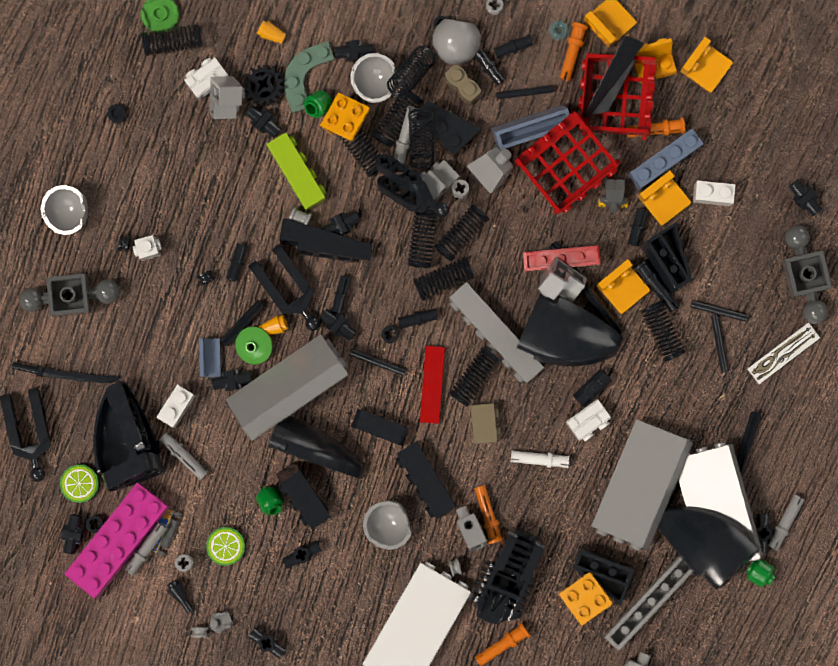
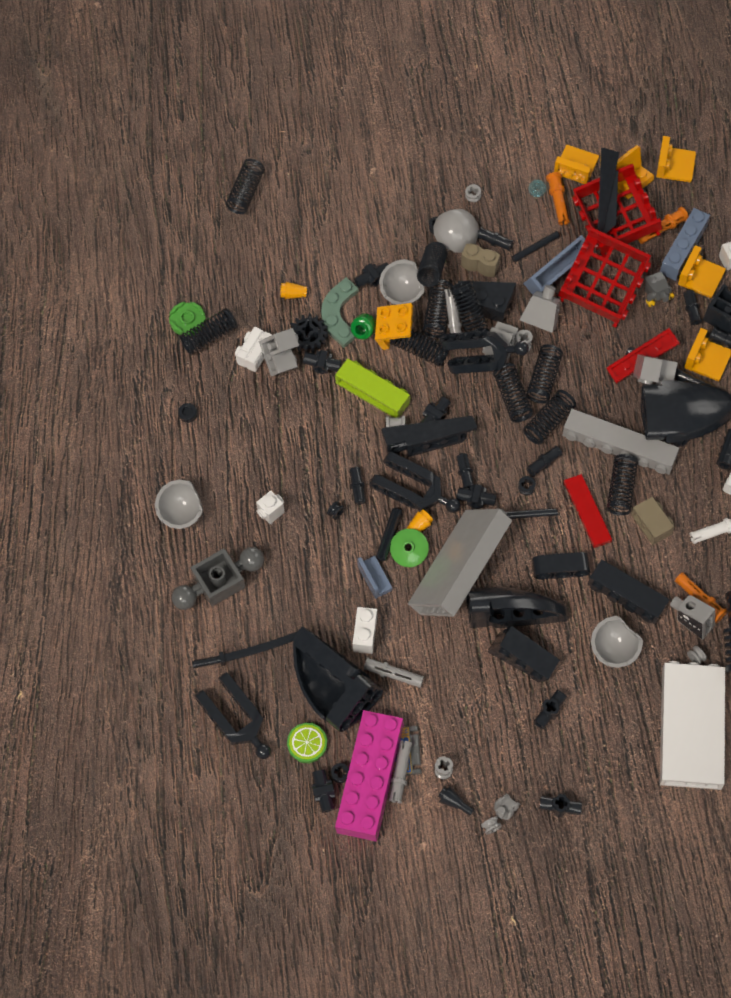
camera: 25 degrees left, 20 degrees down
(124, 243) = (247, 513): black bush -> none
(225, 546) = (474, 736): lime tile -> none
(231, 380) = (404, 586): black axle -> none
(270, 500) = (495, 673): green head -> none
(513, 46) = (506, 215): black pin -> none

